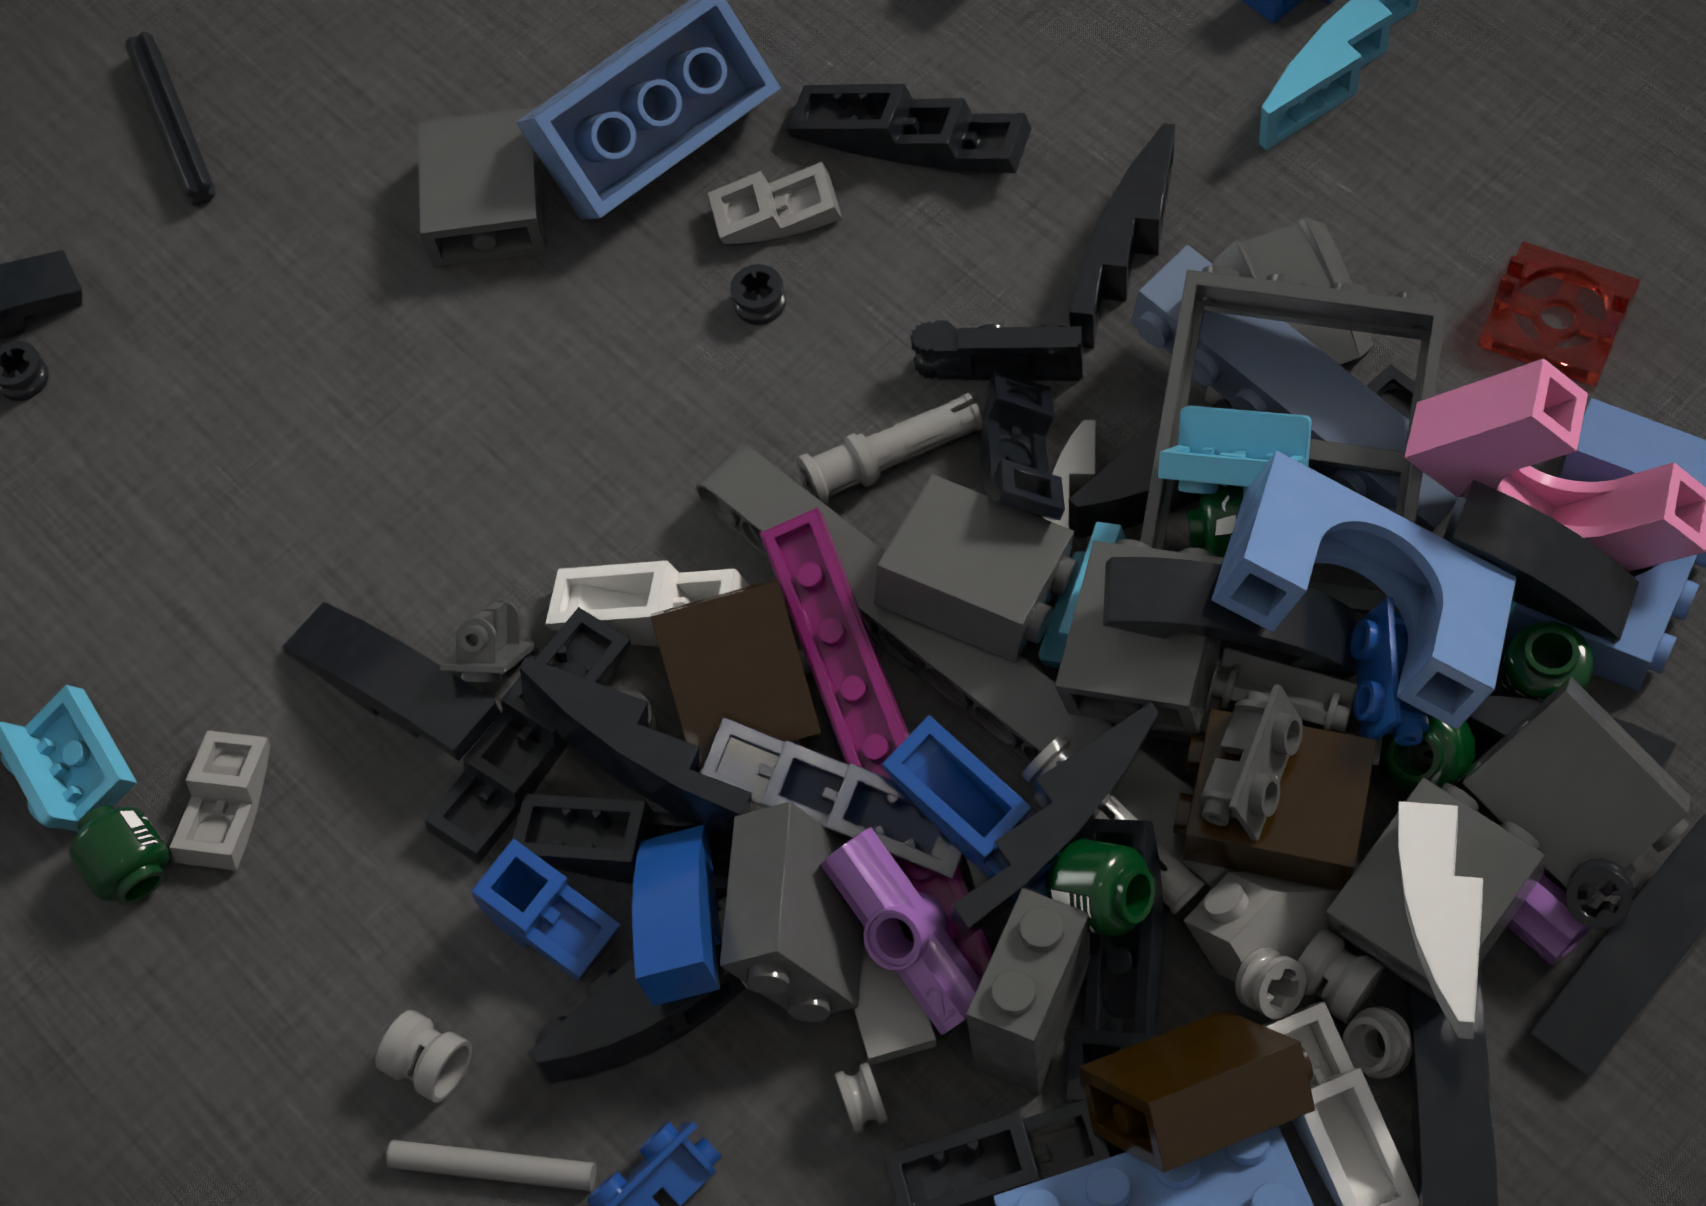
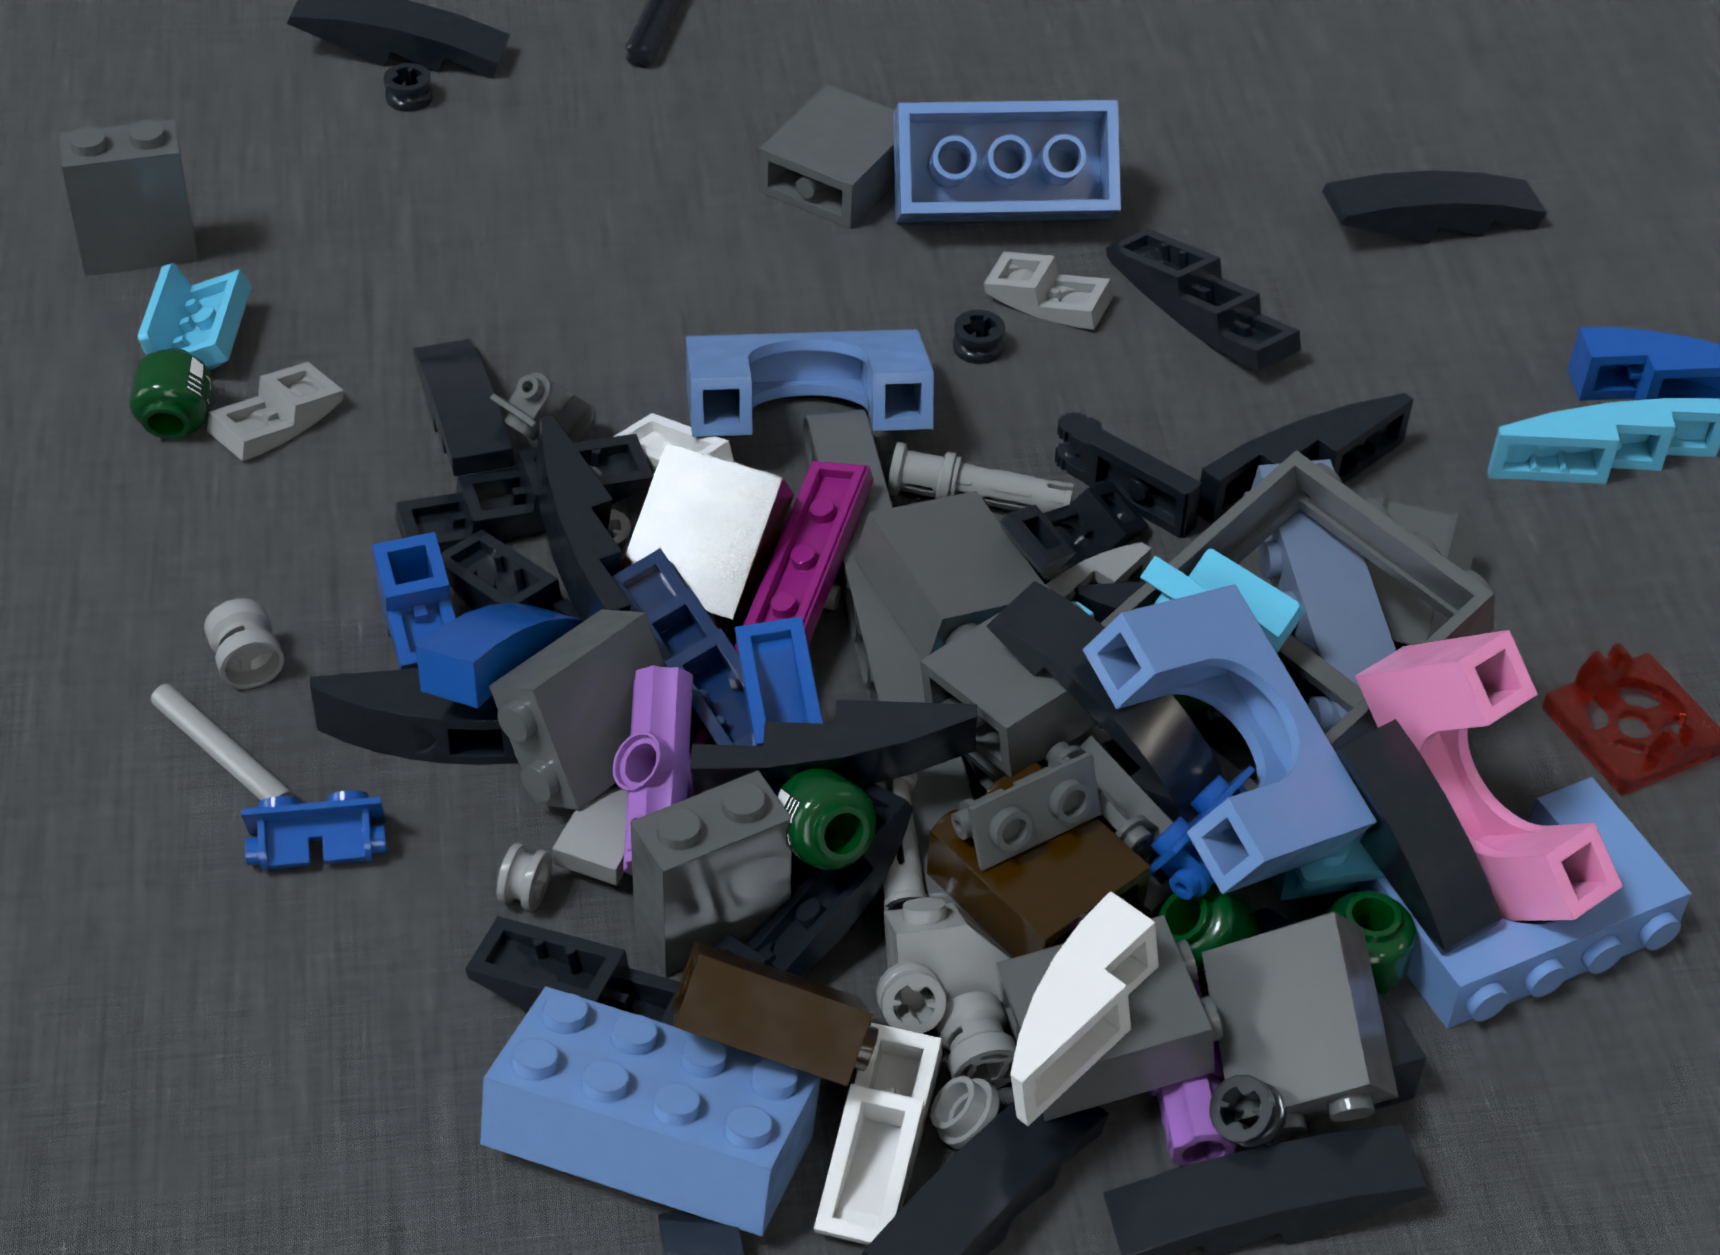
camera: 25 degrees right, 15 degrees down
(710, 392) = (876, 369): none -> medium blue arch

